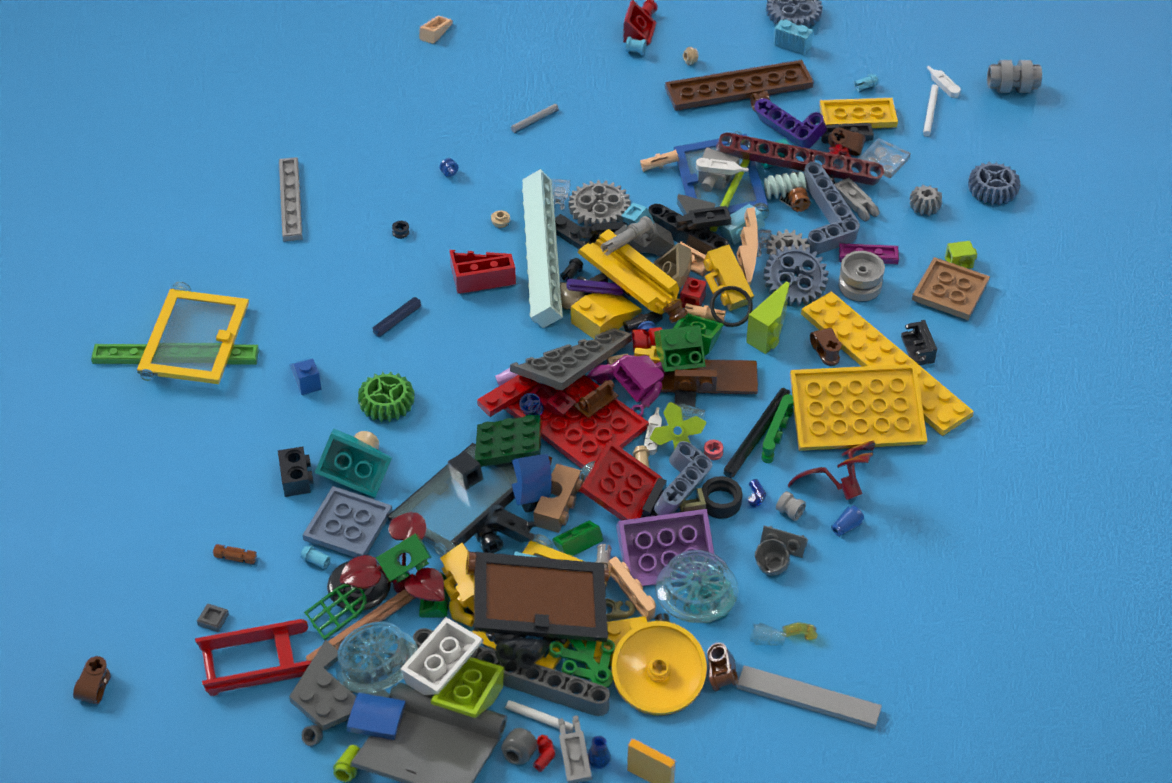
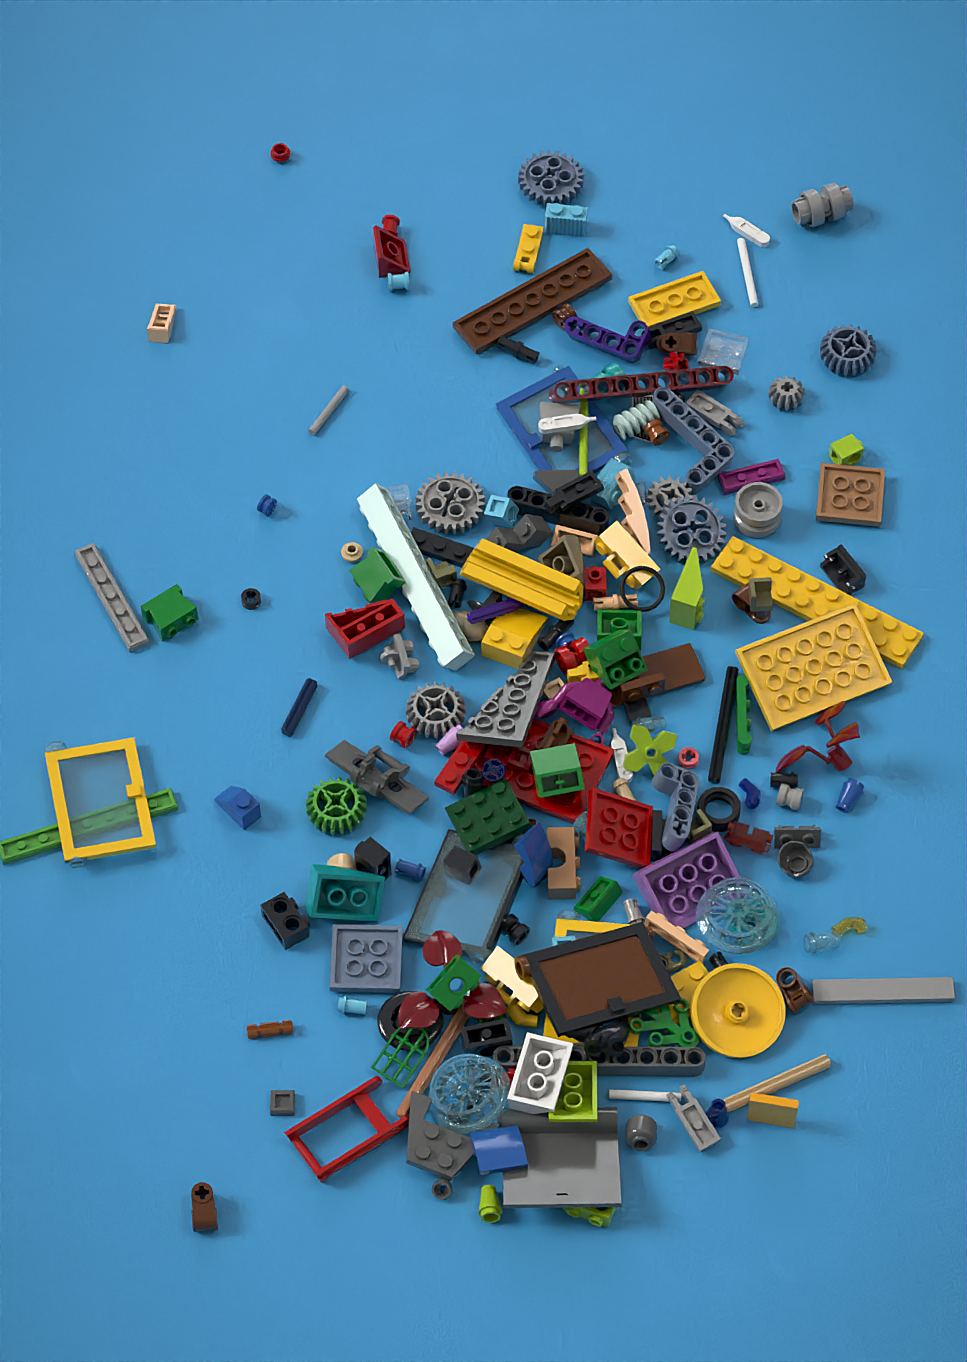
camera: 20 degrees left, 10 degrees up
(328, 219) = (169, 612): none -> green hips
(392, 443) = (373, 858): none -> black brick
(413, 616) = (486, 1037): none -> black brick
(427, 467) = (410, 869): none -> blue pin
(436, 392) = (382, 785): none -> dark grey piece
(471, 359) = (403, 734): none -> red wheel
(497, 299) = (396, 657): none -> light grey hips
(507, 347) = (433, 702): none -> light grey gear
(509, 408) = (472, 781): none -> black cone
(510, 235) = (377, 576): none -> green hips
(510, 524) = (532, 909): black hinge -> none
(546, 752) = (667, 1129): red arm -> none
(565, 253) = (442, 573): none -> olive panel
(584, 419) = (556, 770): none -> green slope
(593, 232) = (470, 540): black hinge -> none
(633, 232) = (512, 535): light grey pin -> none
(659, 160) = (501, 419): light nougat pin -> none
(674, 745) = (778, 1082): none -> tan axle
(675, 310) = (588, 612): reddish brown wheel -> none
(690, 55) = (464, 277): tan plate -> none
(710, 114) = (518, 349): none -> black pin
(729, 524) = (757, 841): none -> clear red hinge
(753, 50) = (528, 248): none -> yellow plate
(798, 492) = (779, 778): none -> black pin
(832, 334) = (760, 594): none -> olive panel

